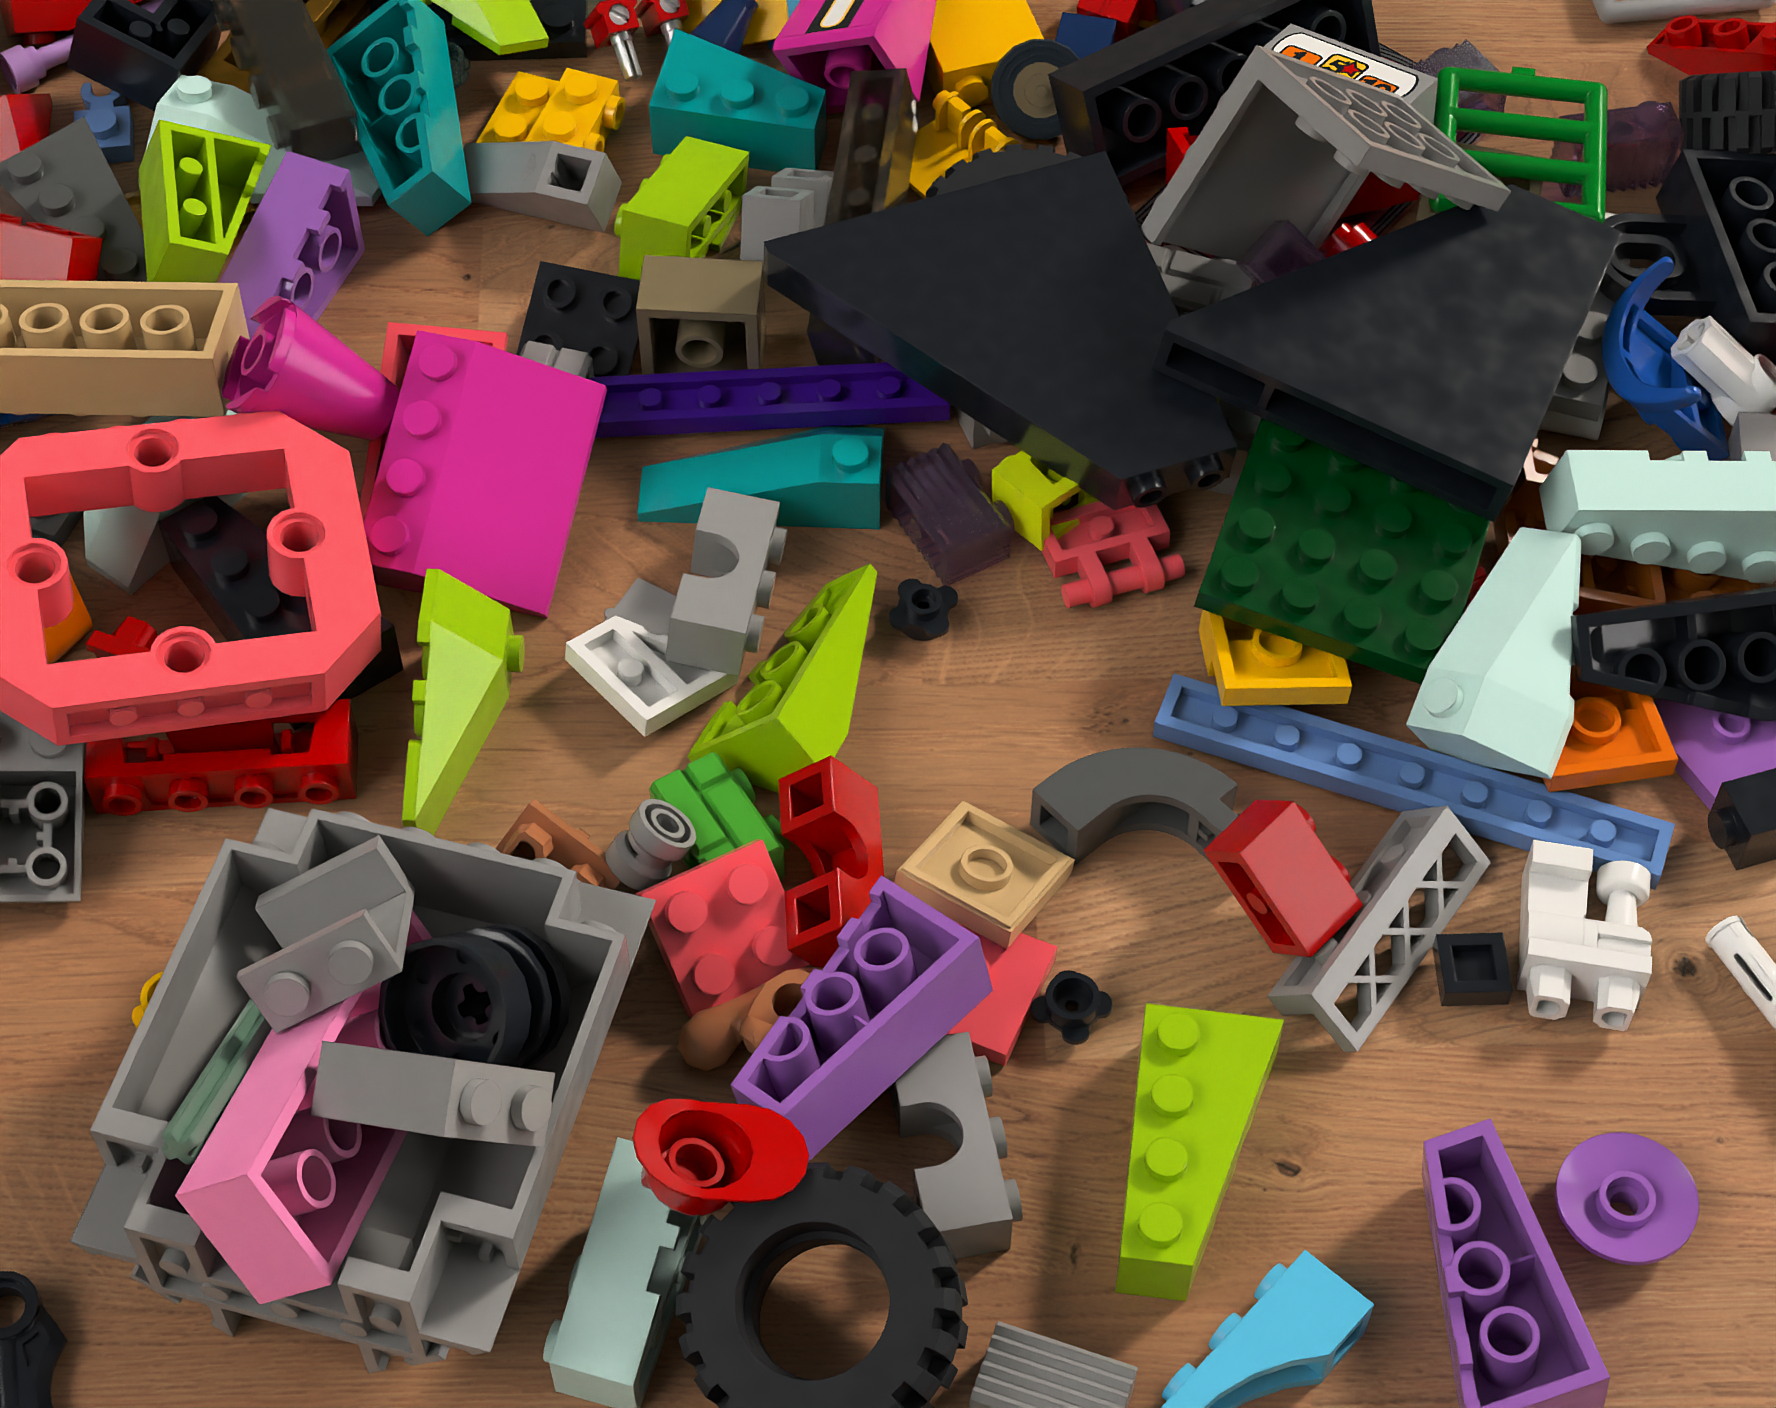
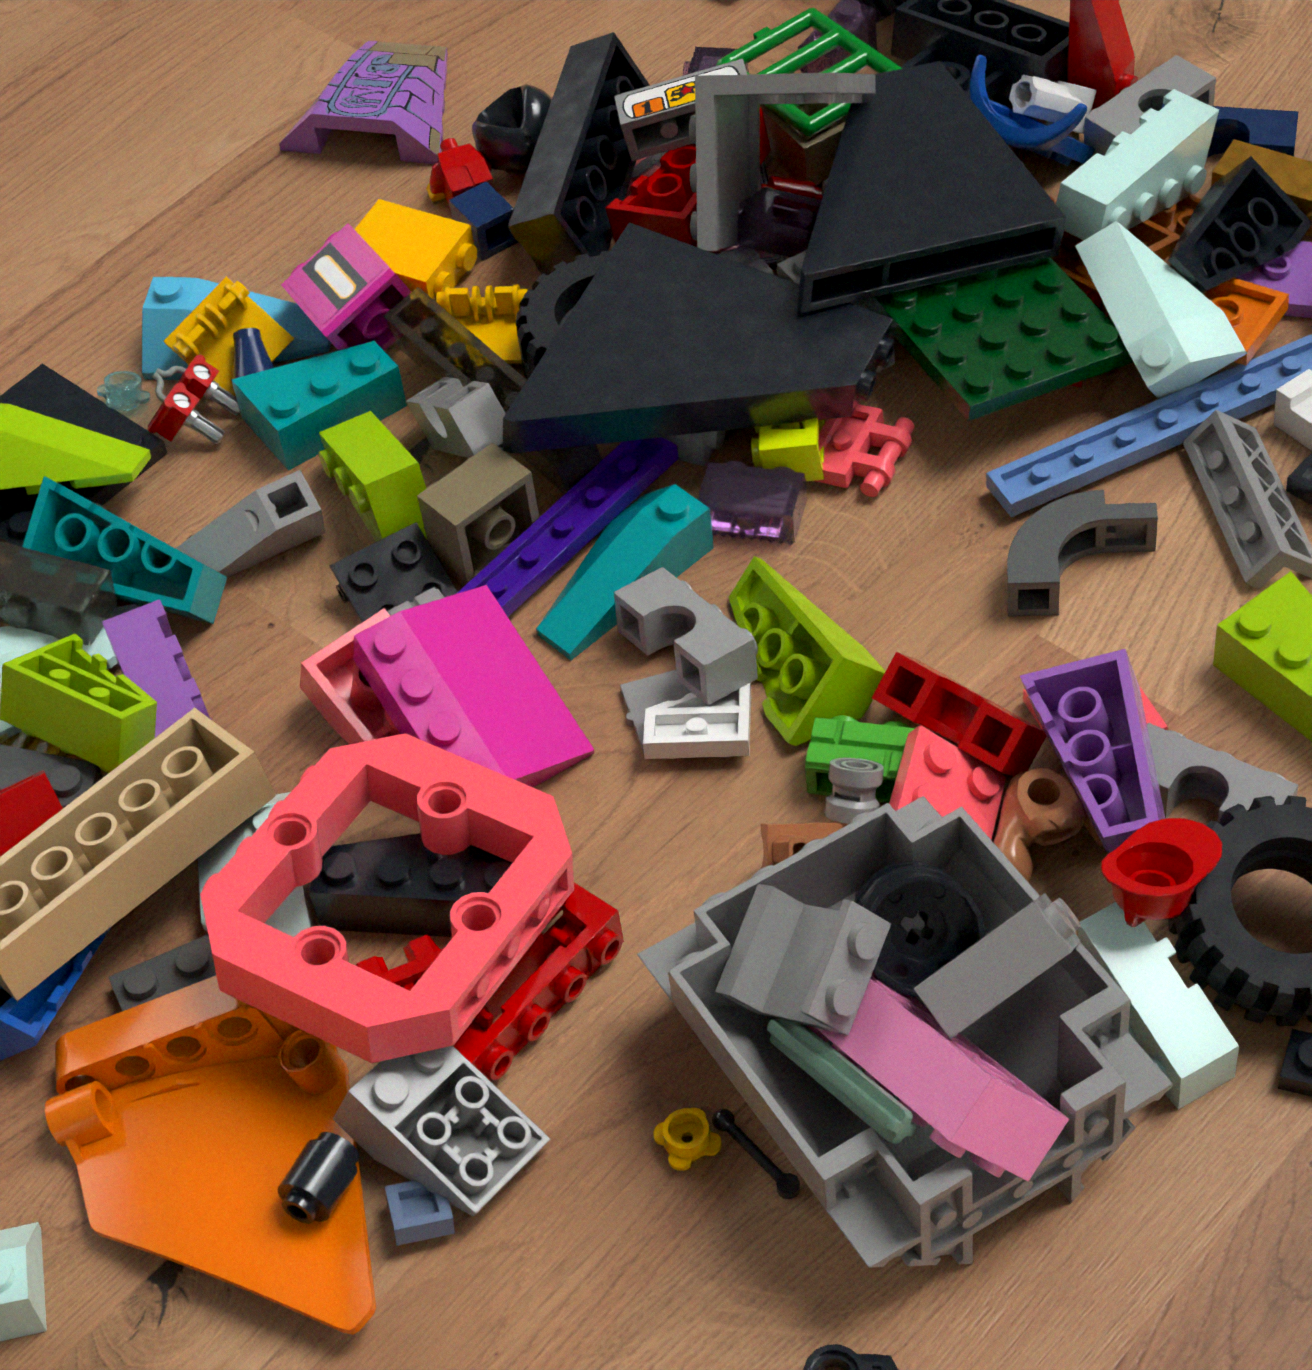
camera: 40 degrees left, 5 degrees down
(307, 375) = (301, 717): dark pink cone -> none
(463, 690) = (614, 826): lime wedge -> none
(569, 111) = (209, 487): yellow plate -> none
(918, 622) = (804, 561): black plate -> none
(984, 874) = (1024, 647): tan plate -> none
(1023, 87) = (487, 251): black wheel -> none
(1076, 989) = (1162, 674): black plate -> none
(1267, 668) = (1028, 427): yellow plate -> none
(1284, 877) = (1191, 510): brick -> none

